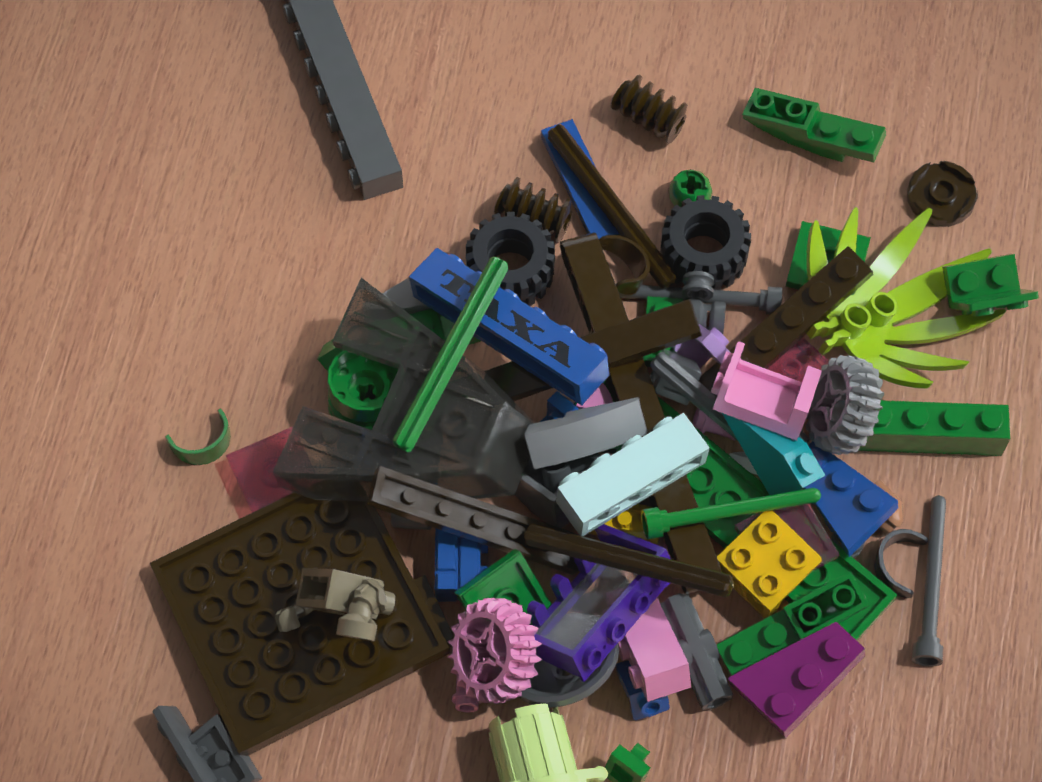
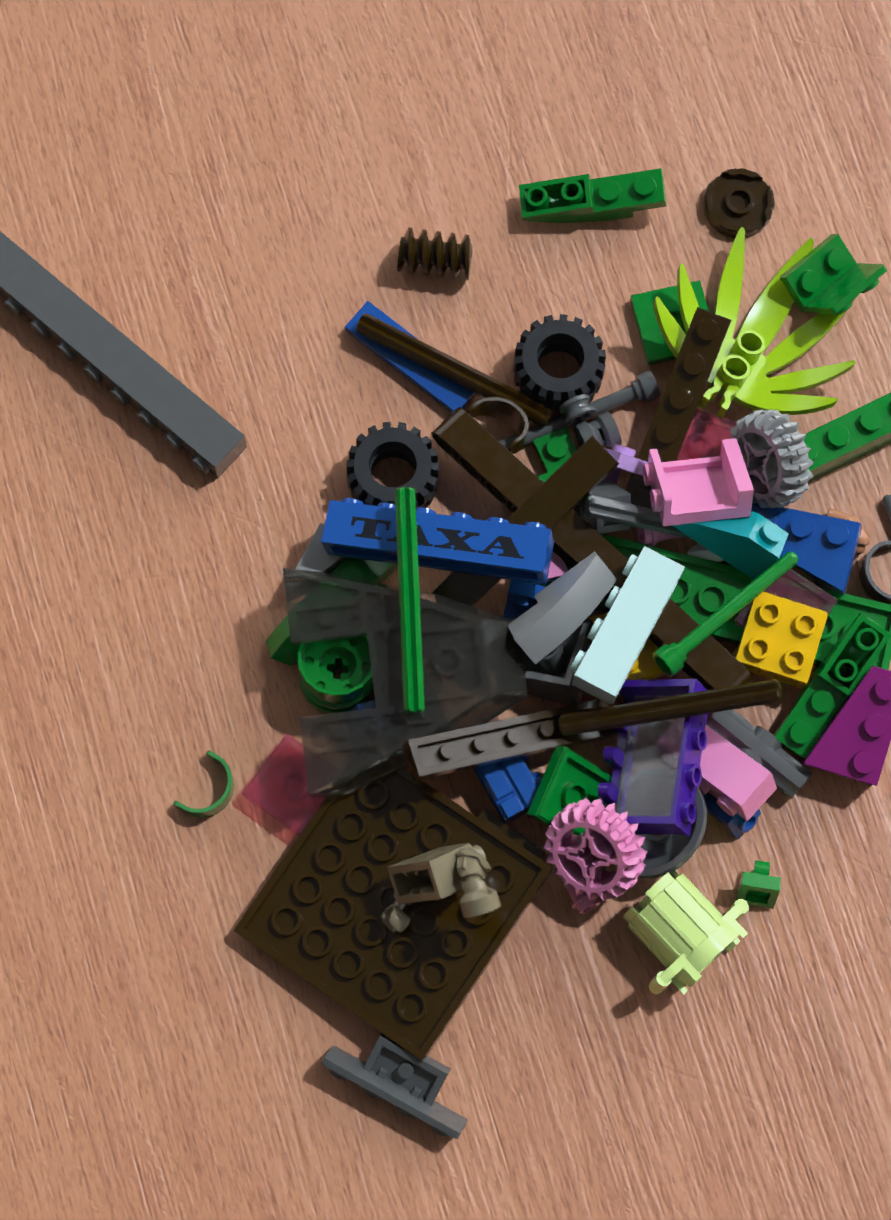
camera: 30 degrees left, 10 degrees up
(549, 213) = (385, 407): dark brown piece -> none
(689, 180) = (520, 307): green piece -> none

